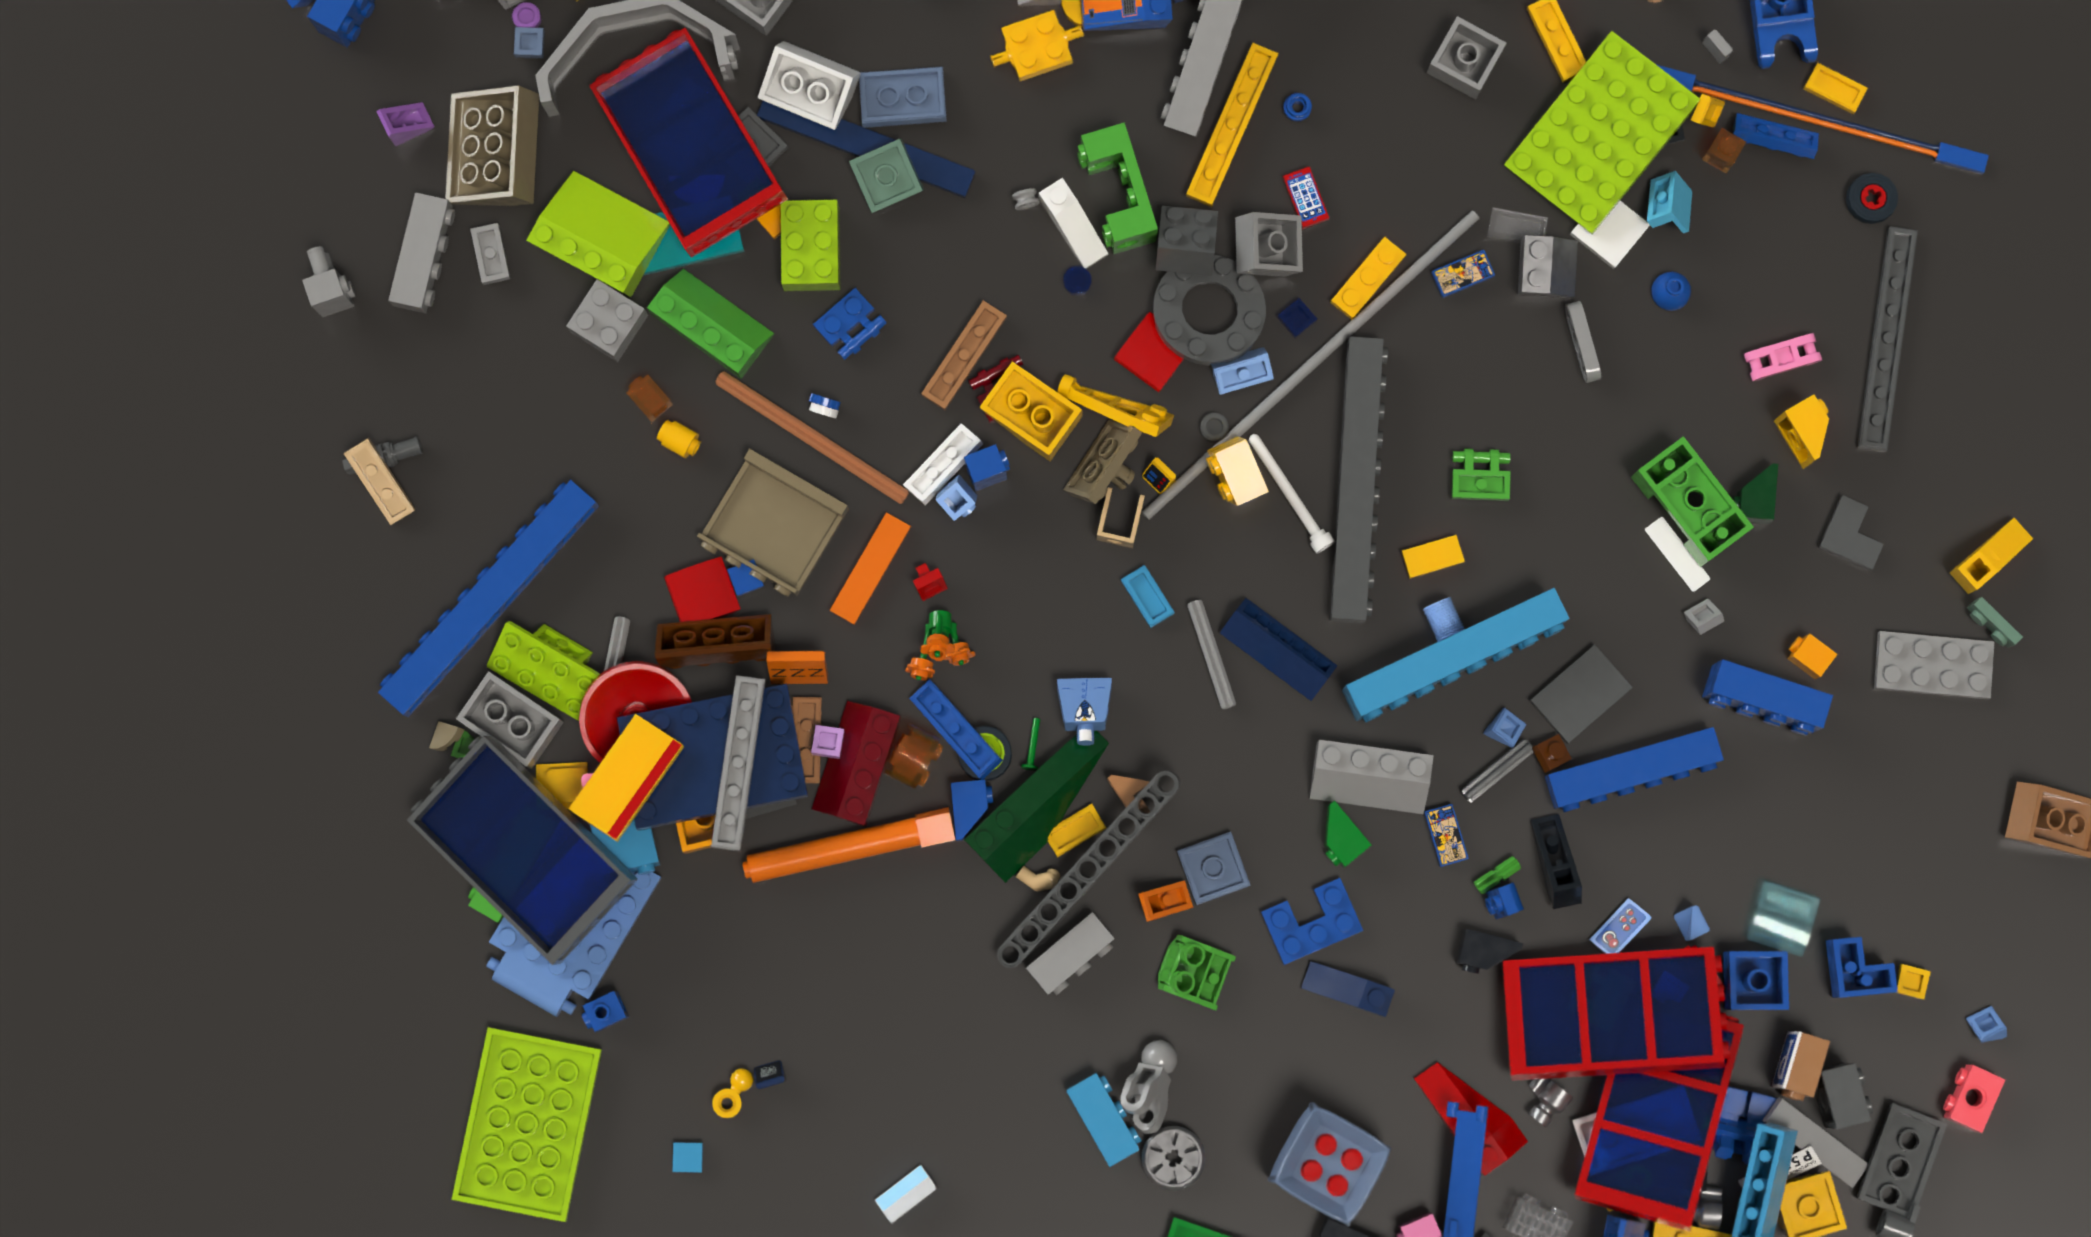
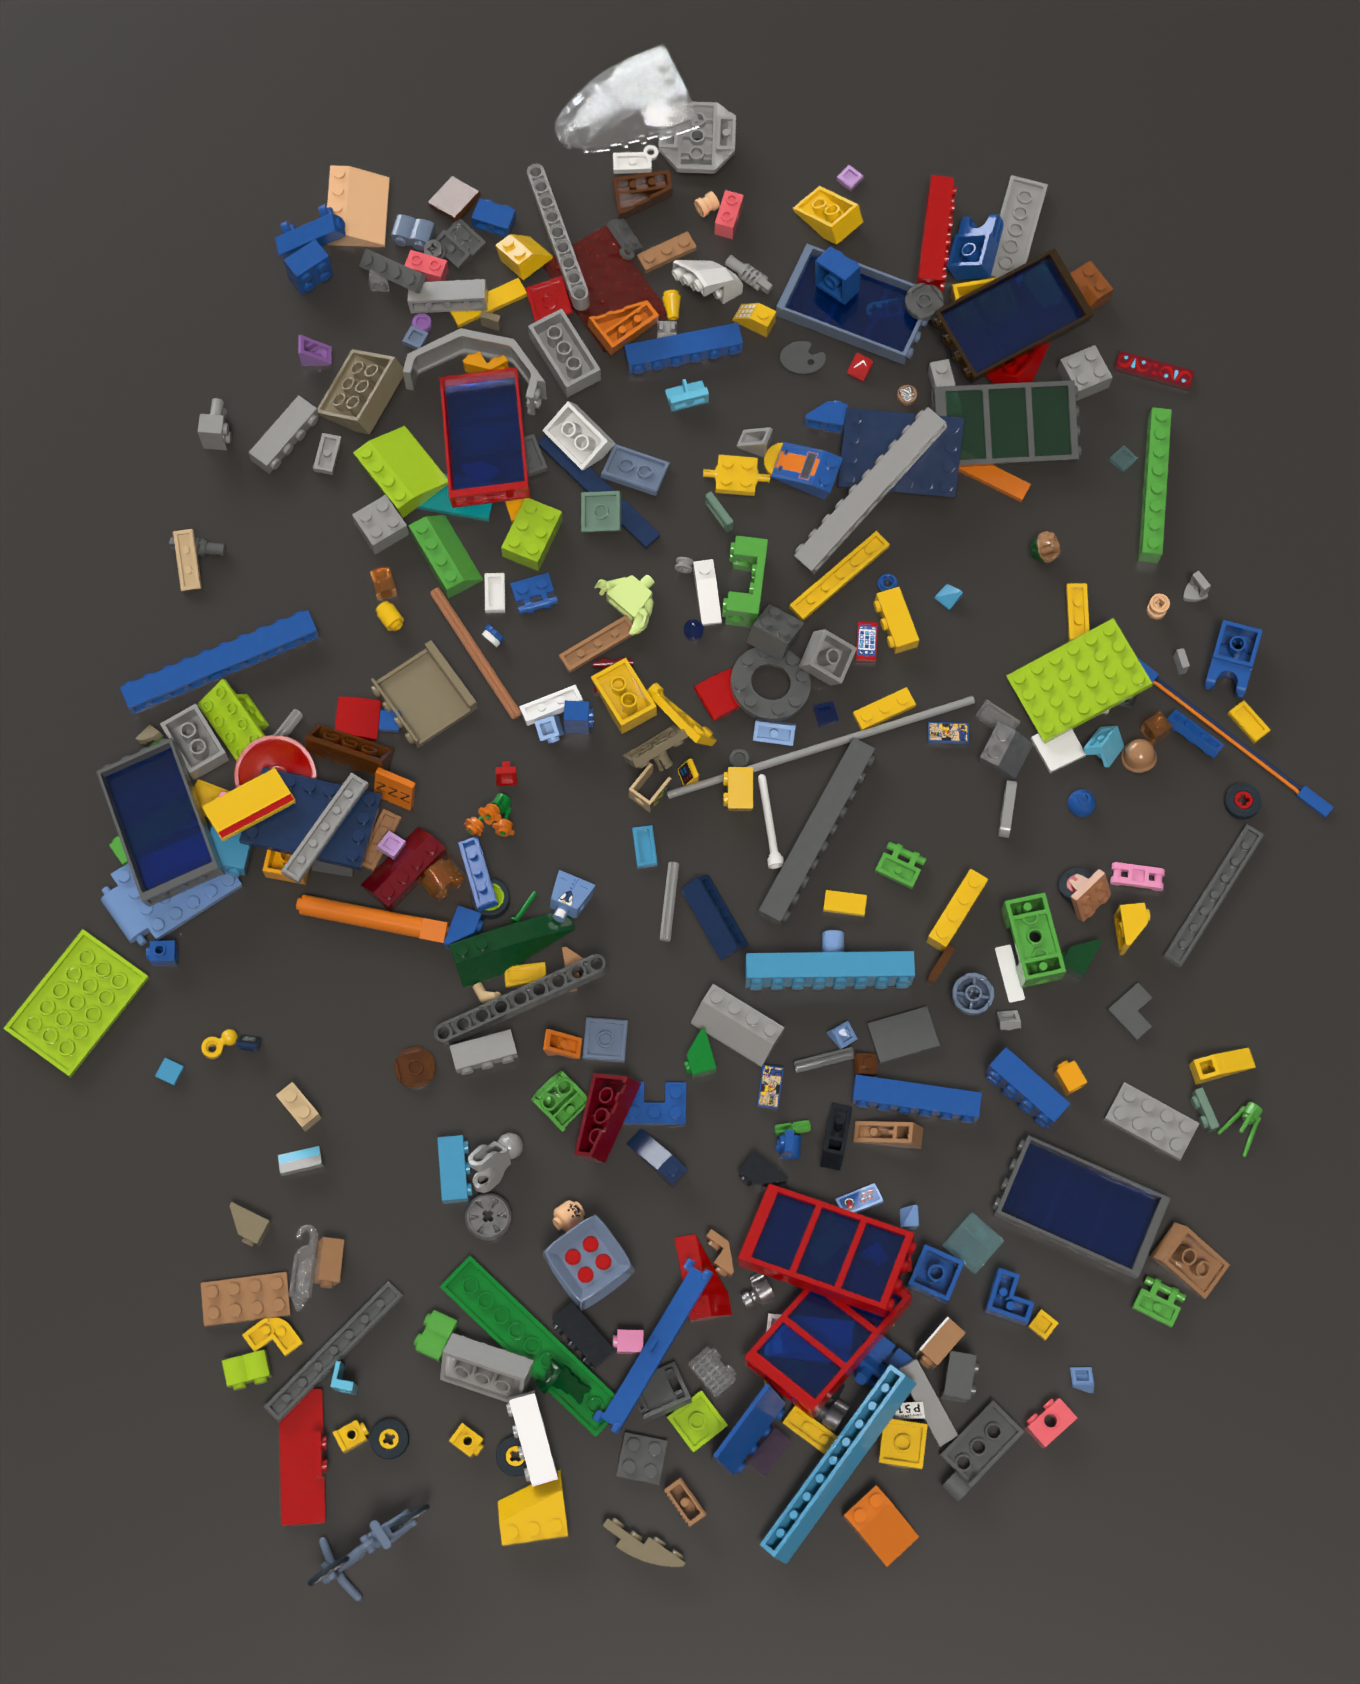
camera: 20 degrees right, 10 degrees down
(628, 43) = (476, 363): none -> light orange slope
(798, 345) = (494, 592): none -> white tile
(870, 568) = (473, 750): orange tile -> none
(872, 1129) = (298, 1106): none -> tan brick
(981, 276) = (630, 599): none -> yellowish green torso
(992, 1011) = (415, 1067): none -> reddish brown tile
(1038, 107) = (718, 512): none -> sand green tile
(1260, 968) = (604, 1115): none -> dark red wedge
(1273, 1112) = (568, 1215): none -> light nougat head
(1331, 153) = (896, 620): none -> yellow brick
(1383, 89) = (948, 596): none -> dark azure slope
(1466, 57) = (1011, 597): light grey brick -> none
(1489, 1079) = (724, 1261): none -> medium nougat slope
(1578, 504) = (957, 910): none -> yellow brick
(1589, 584) = (940, 965): none -> reddish brown tile
(1619, 830) = (889, 1134): none -> medium nougat slope
(1648, 606) = (972, 994): none -> sand blue cylinder
(1708, 110) = (1155, 696): yellow tile -> none
(1716, 197) = (1138, 756): none -> medium nougat helmet
(1725, 407) = (1084, 891): none -> nougat plate
(1895, 813) = (1081, 1206): none -> clear blue window
(2039, 897) = (1157, 1307): none -> bright green plate
(2053, 603) = (1250, 1115): none -> bright green plant

